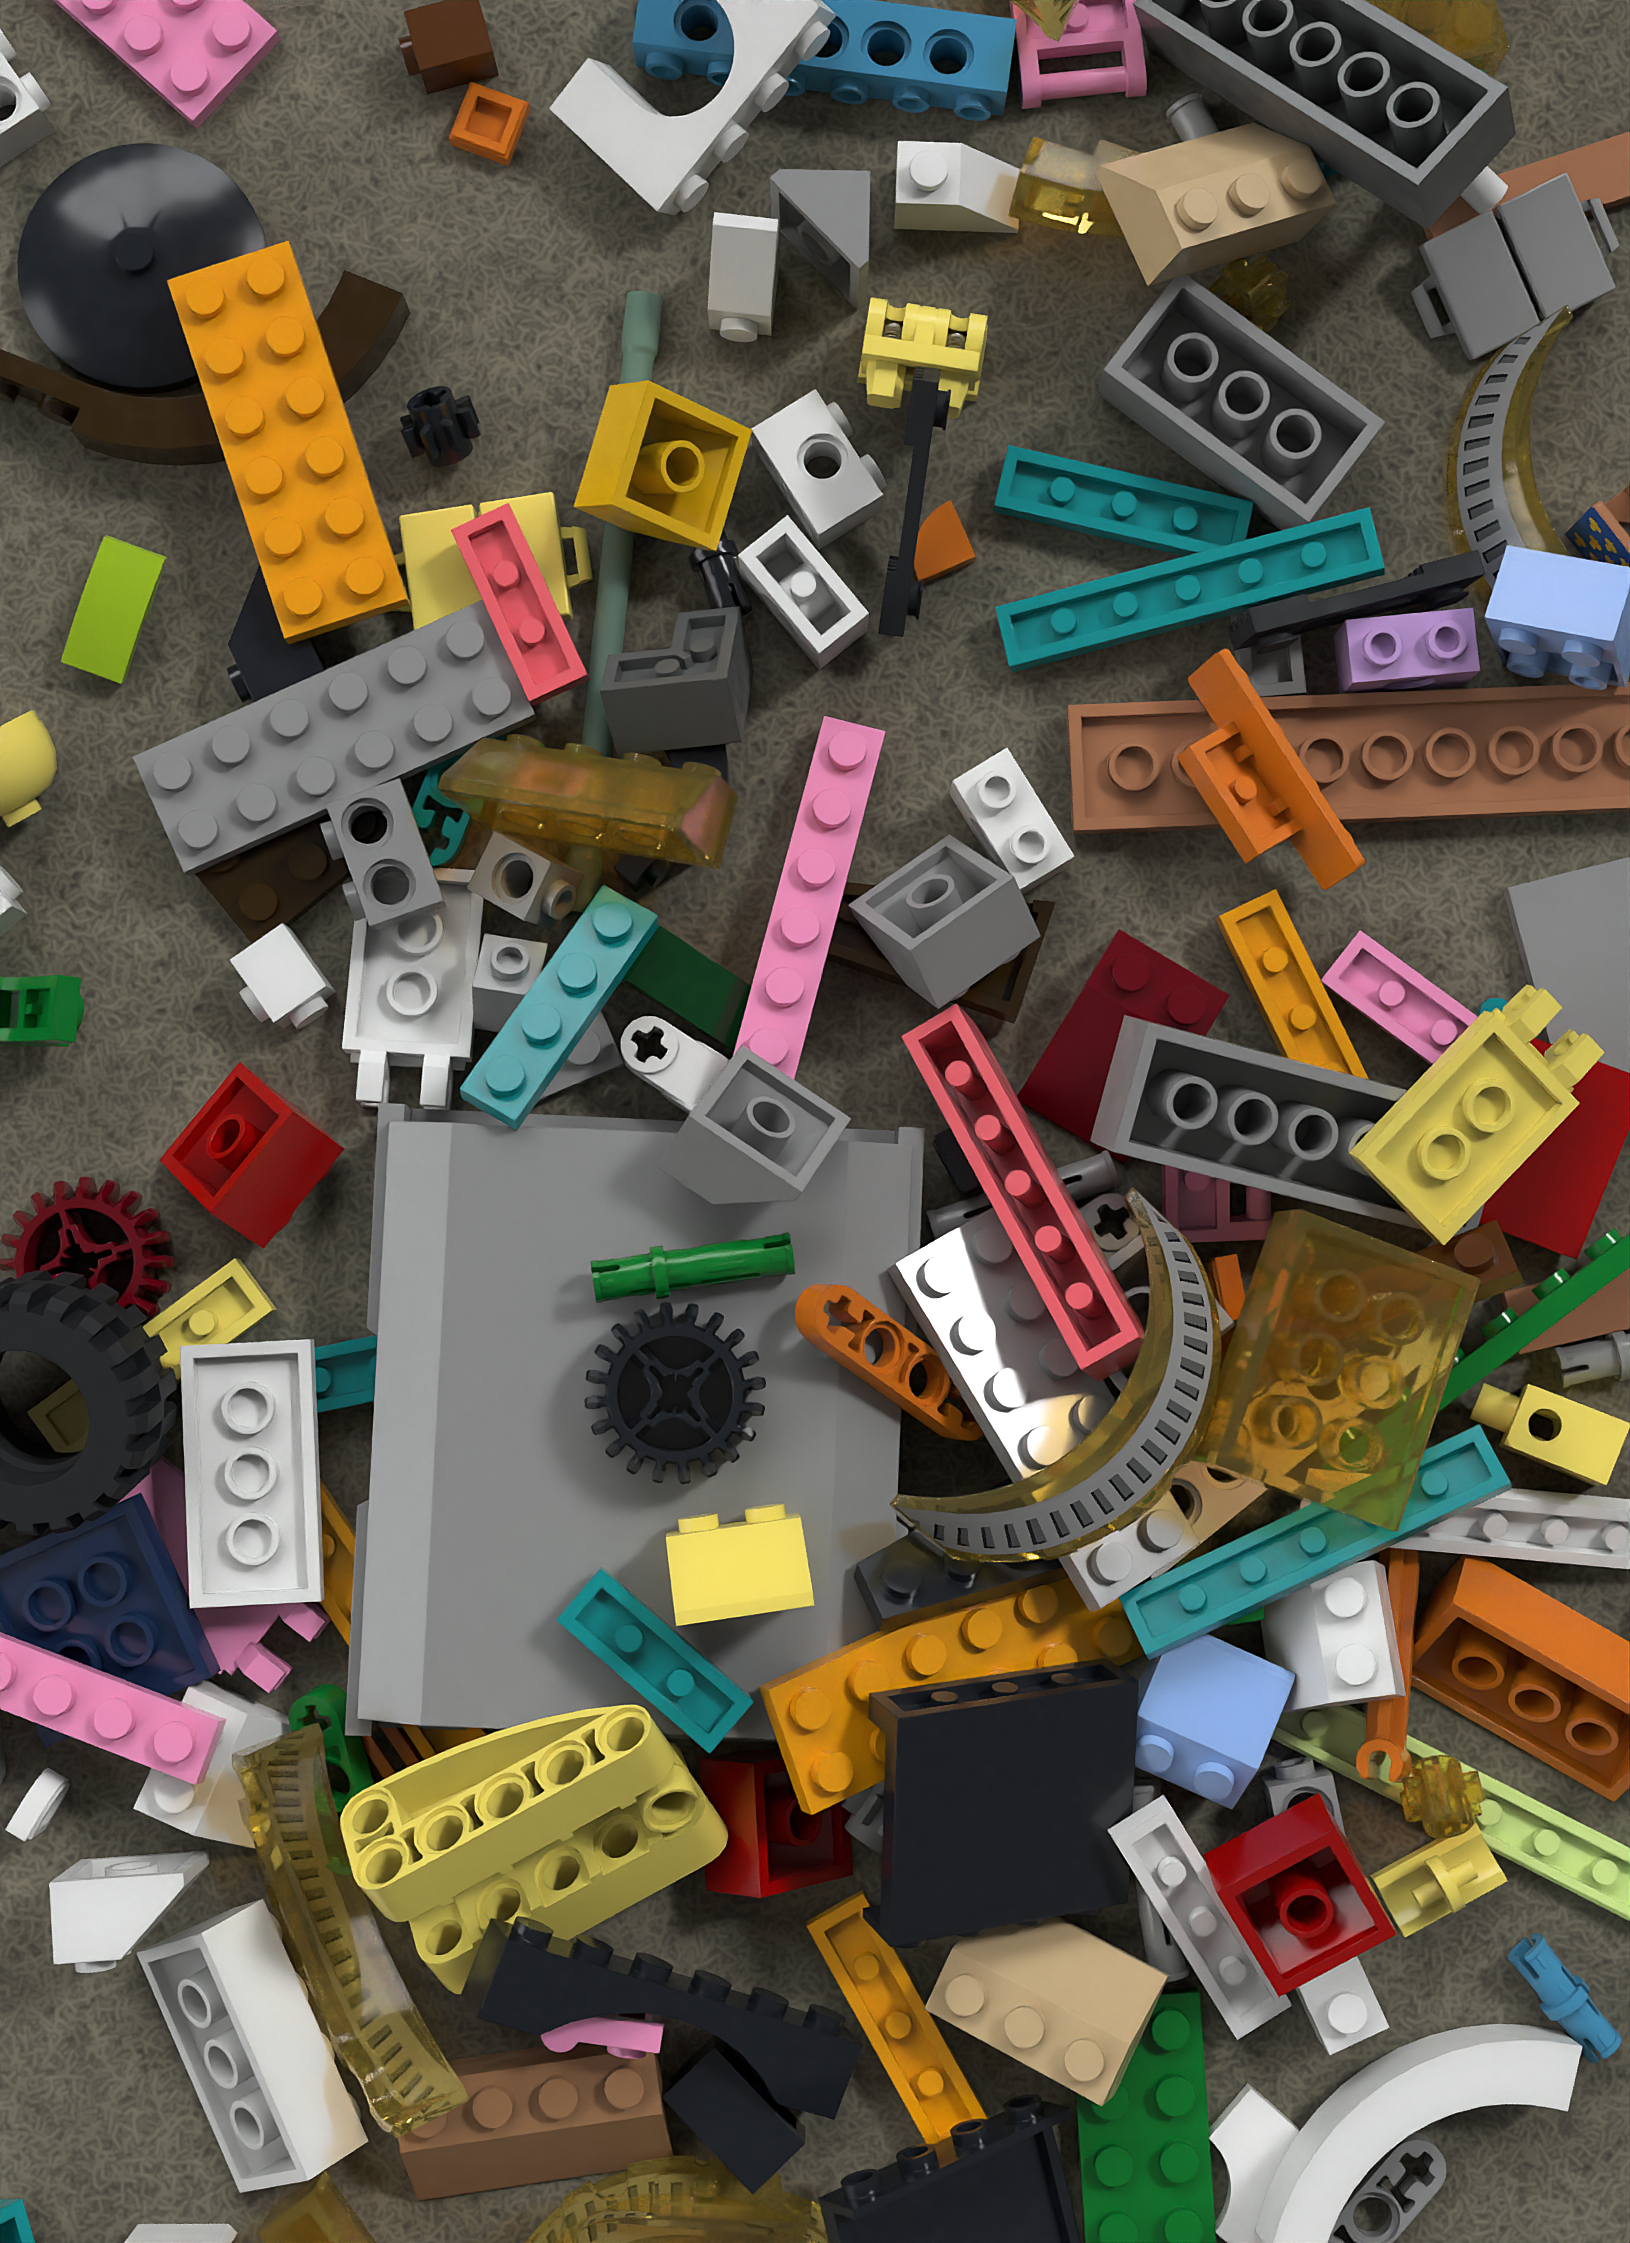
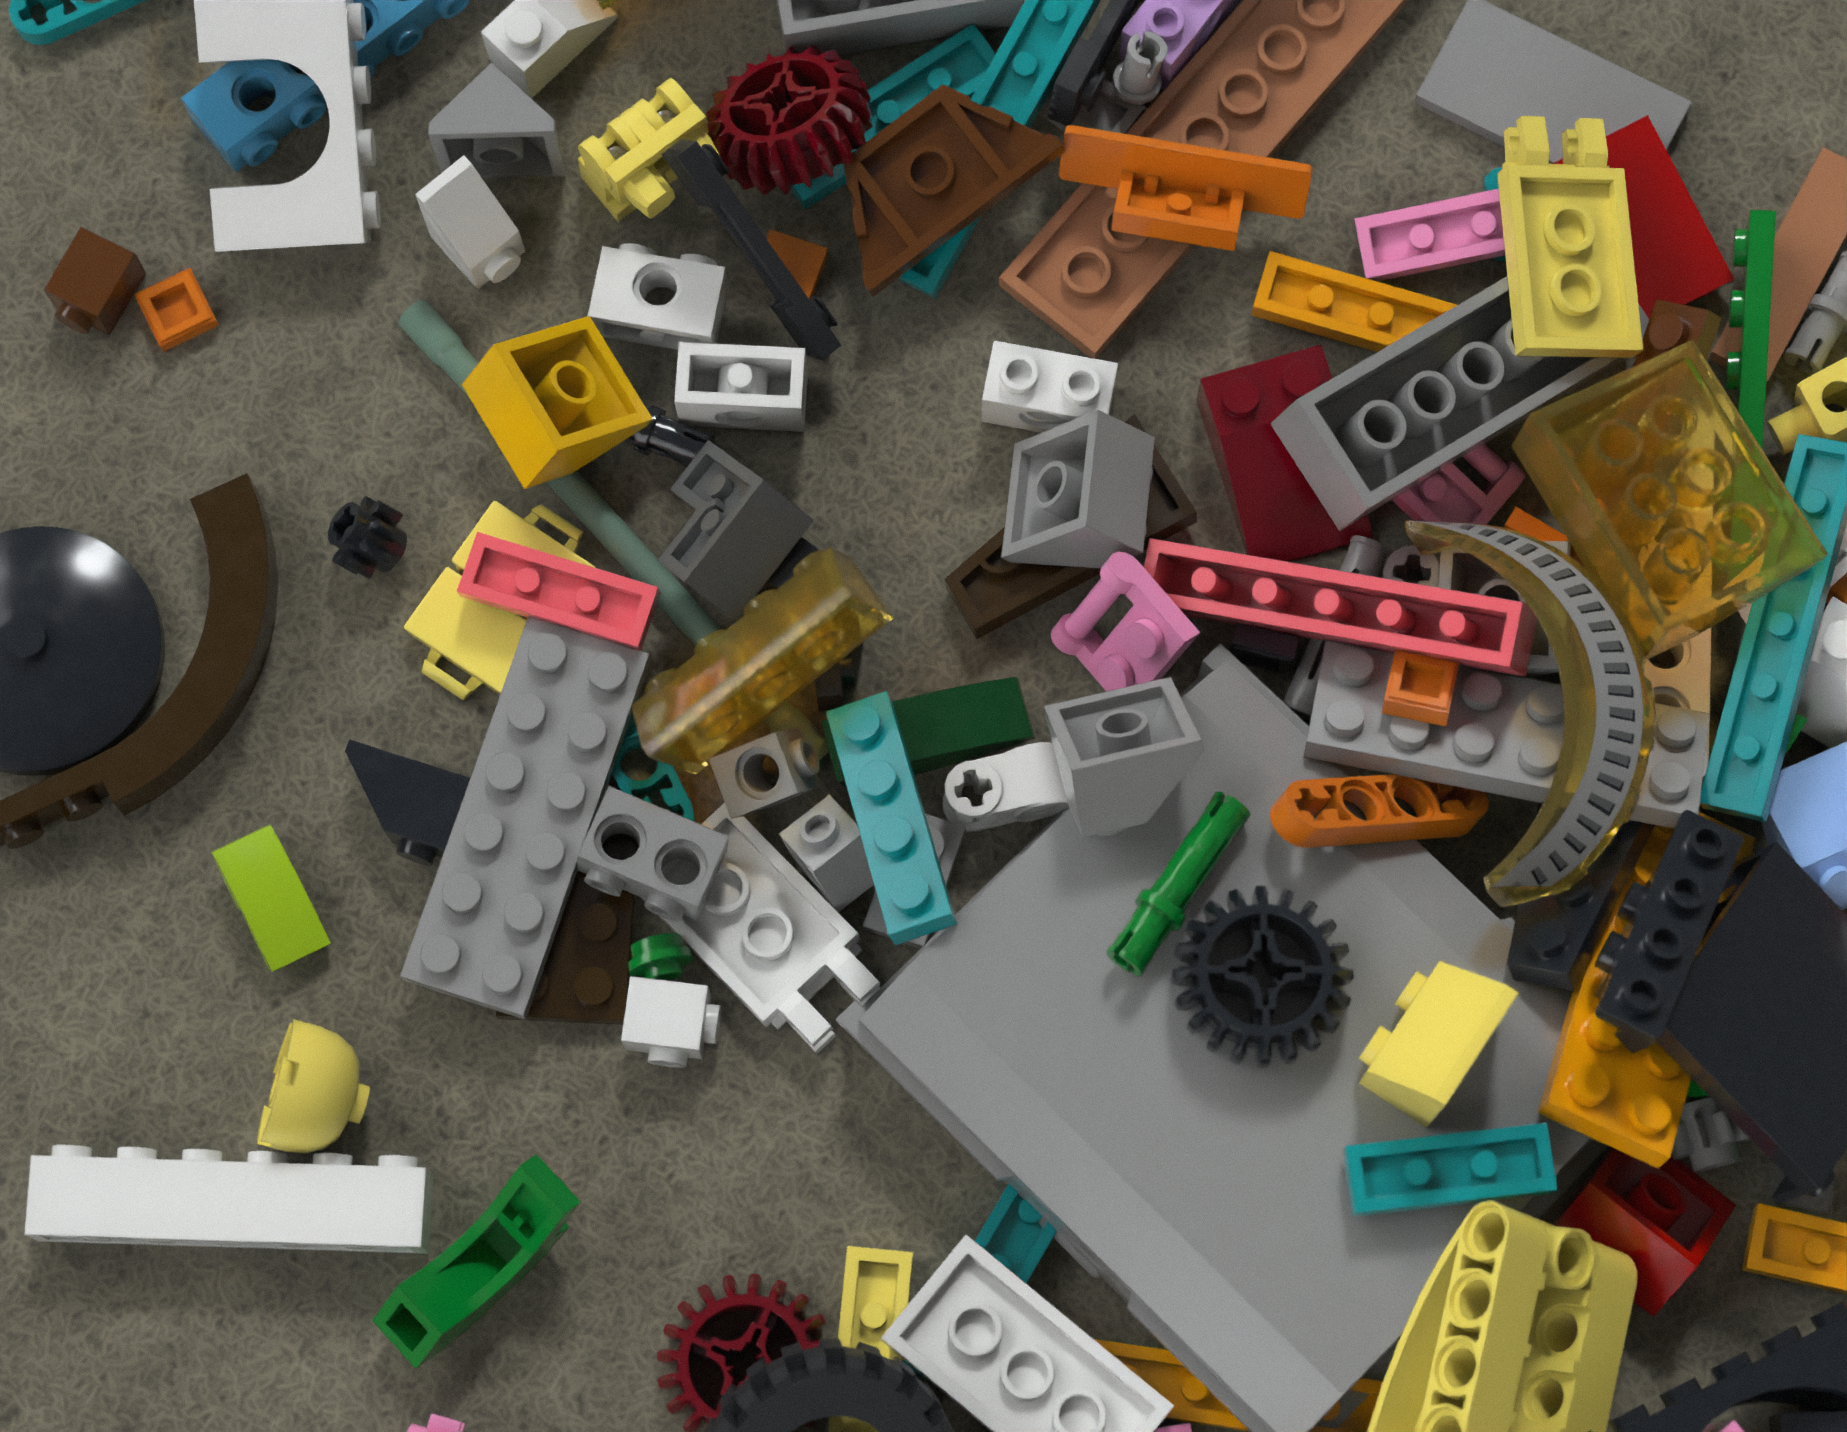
camera: 45 degrees left, 10 degrees down
(251, 1156) = (779, 1163): red slope -> none
(288, 442) = (279, 650): light orange plate -> none
(322, 930) = (659, 957): none -> green plate
(810, 893) = (966, 575): bright pink plate -> none
(872, 1069) = (1145, 639): none -> bright pink plate
(980, 1662) = (1664, 928): none -> black bracket
(1013, 1312) = (1420, 688): none -> orange tile
(1042, 435) = (790, 119): none -> dark red gear
(1095, 586) = (935, 177): none -> reddish brown wing
(1322, 665) = (1138, 77): none -> light grey pin

